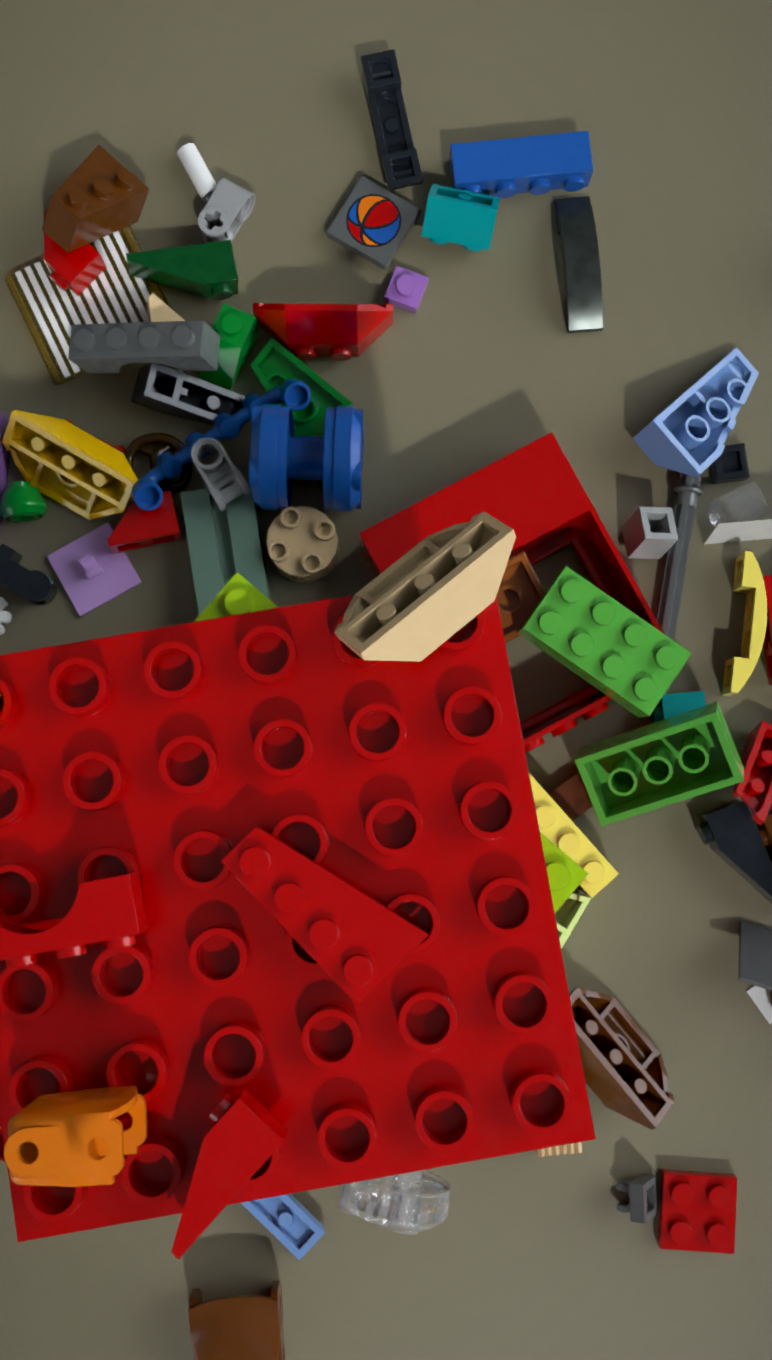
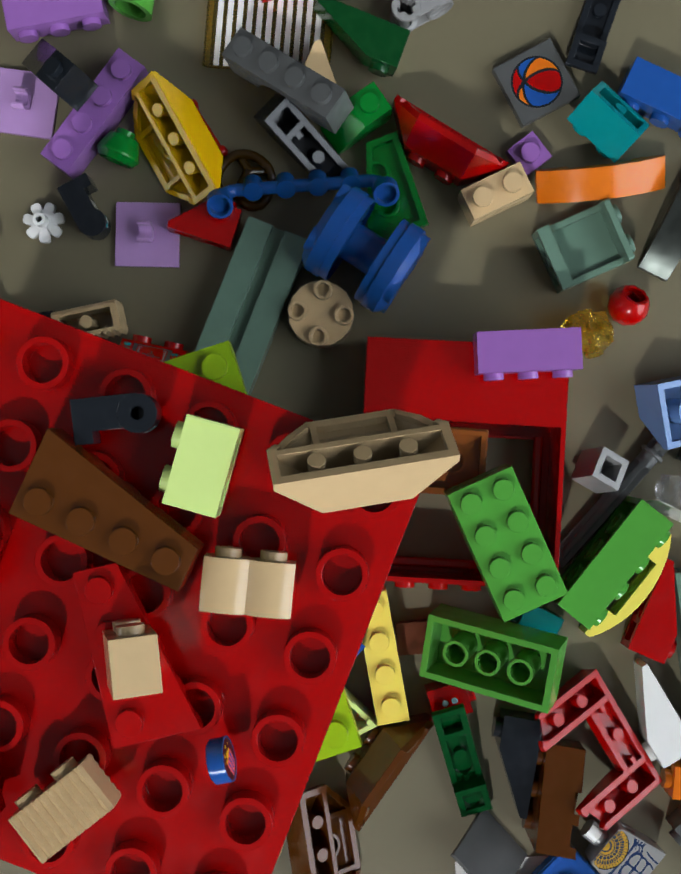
camera: 30 degrees right, 5 degrees up
(171, 688) = (123, 411): none -> black leg
(207, 784) = (98, 510): none -> reddish brown wedge
(222, 477) = (286, 226): light grey piece -> none
(281, 685) = (201, 465): none -> yellowish green brick
(325, 894) = (132, 659): none -> tan brick
(344, 1089) = (65, 807): none -> tan brick
(391, 770) = (247, 584): none -> tan brick
(397, 341) = (495, 194): none -> tan brick
(465, 953) = (221, 760): none -> blue tile
(485, 274) = (600, 181): none -> orange slope
(507, 340) = (584, 245): none -> sand green panel
(516, 458) = (527, 353): none -> medium lavender brick
(561, 414) = (595, 329): none -> clear yellow brick
(581, 369) = (628, 305): none -> red piece
(617, 935) = (380, 762): none -> reddish brown wedge
(644, 834) = (445, 695): none -> red brick
(690, 884) = (461, 759): none -> dark green slope
(712, 608) = (611, 559): none -> bright green brick

